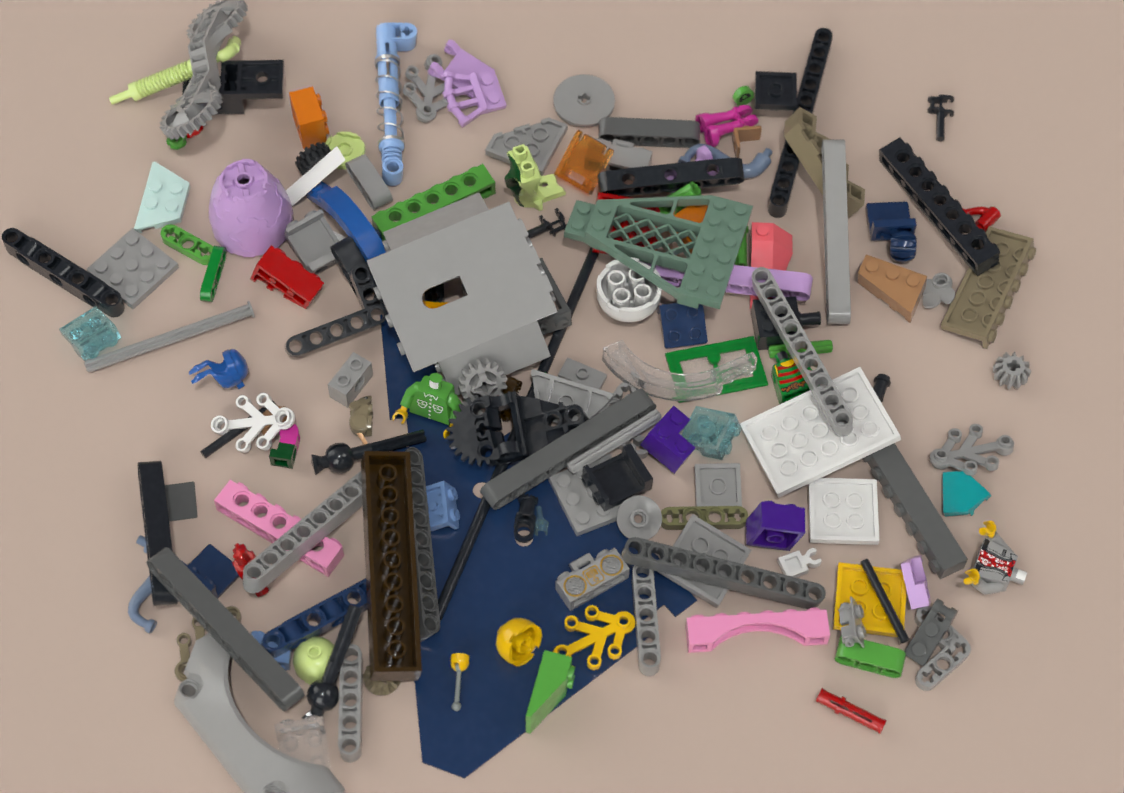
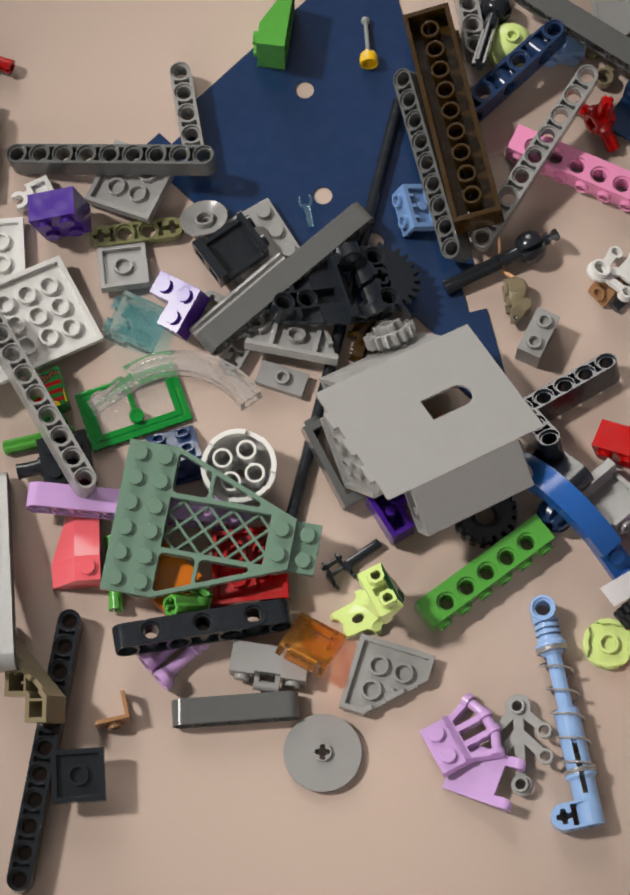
camera: 175 degrees right, 10 degrees up
(287, 448) = (587, 252): dark green leg -> none
(369, 181) = (568, 596): light grey beam -> none
(430, 399) = (441, 316): bright green torso -> none
(517, 640) = (316, 79): yellow cylinder -> none
(525, 517) = (322, 210): black connector -> none
(592, 580) = (248, 148): light grey piece -> none
(598, 634) = (236, 99): yellow plant -> none
(738, 115) = (162, 731): dark pink piece -> none
(743, 95) = (120, 780): bright green tile -> none
(751, 170) = (115, 669): sand blue animal -> none
(805, 627) = (122, 113): bright pink arch -> none

